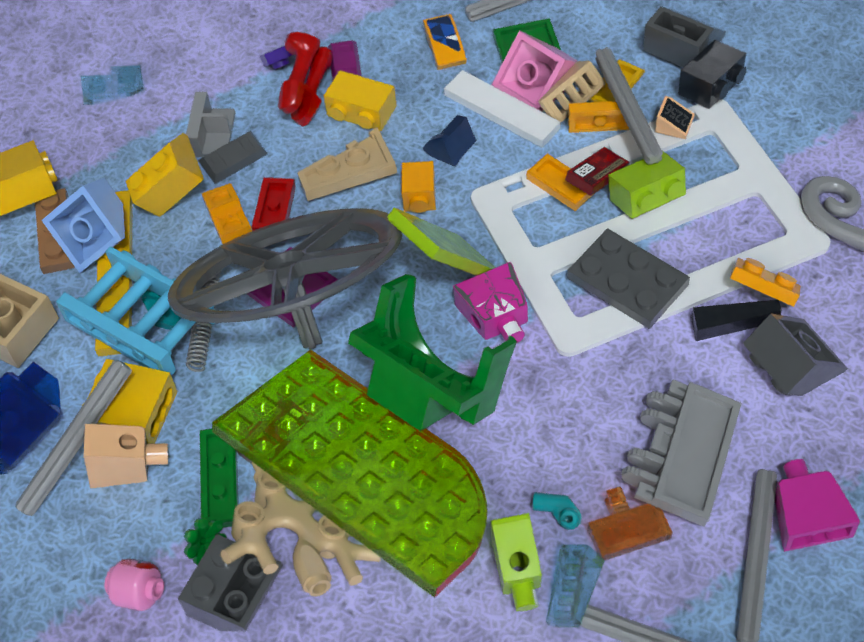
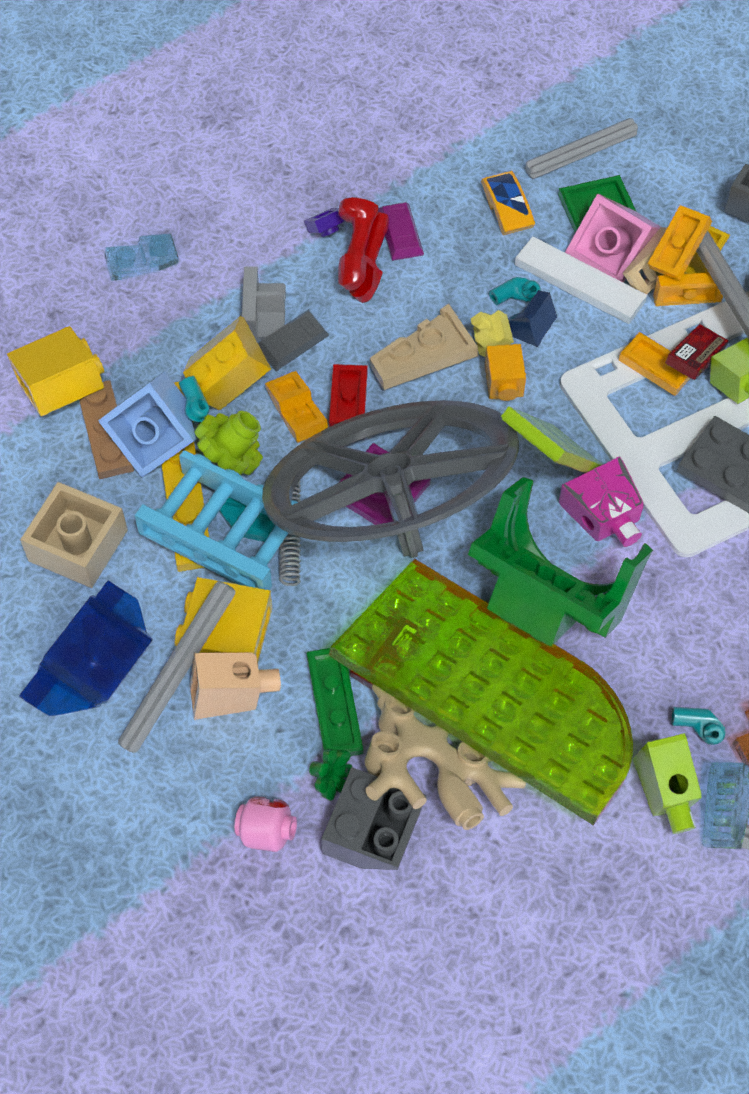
camera: 10 degrees left, 5 degrees up
(130, 206) = (196, 404): none -> teal arm
(158, 242) = (231, 441): none -> lime plant
(360, 100) = (426, 273): yellow brick -> none
(410, 148) = (491, 330): none -> light yellow tile
(439, 115) = (515, 288): none -> teal arm
(588, 73) = (679, 242): none -> light orange plate

